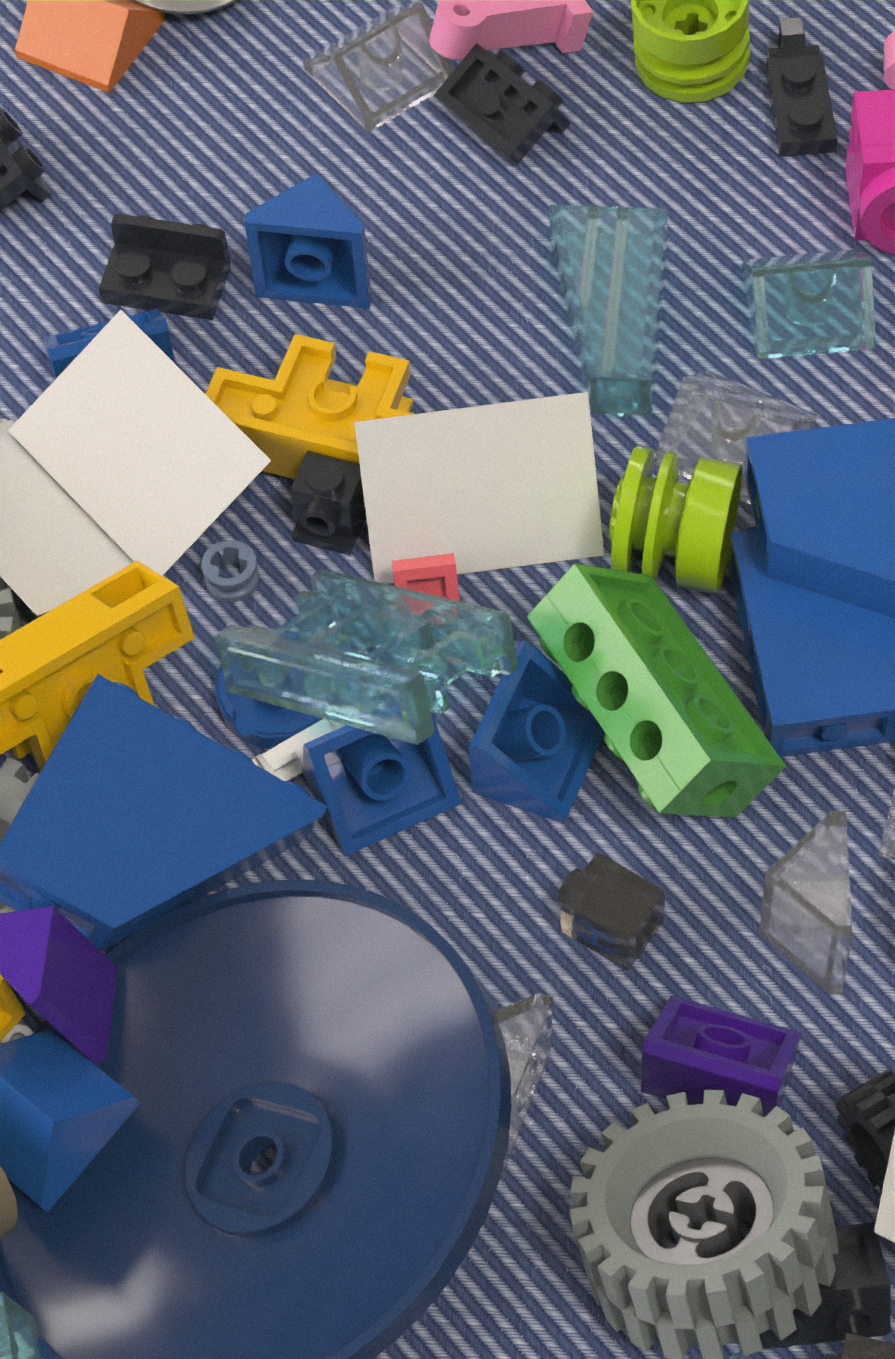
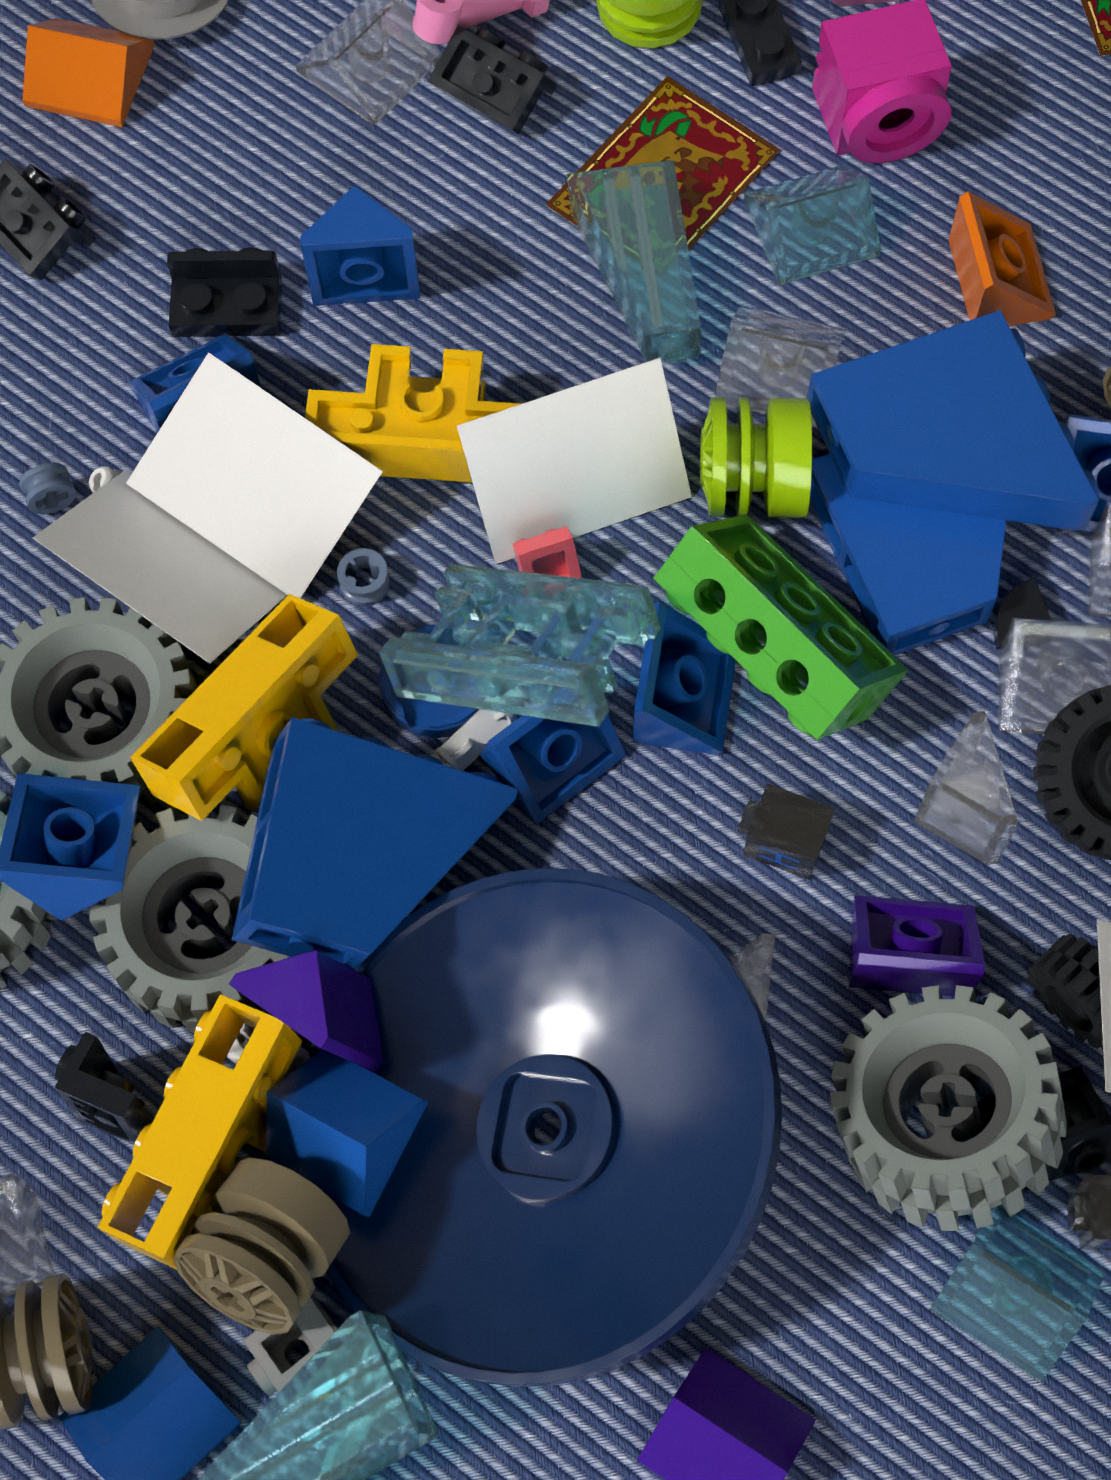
camera: 15 degrees left, 10 degrees up
(328, 503) = (438, 497): black brick -> none
(710, 214) = (709, 149): none -> sticker

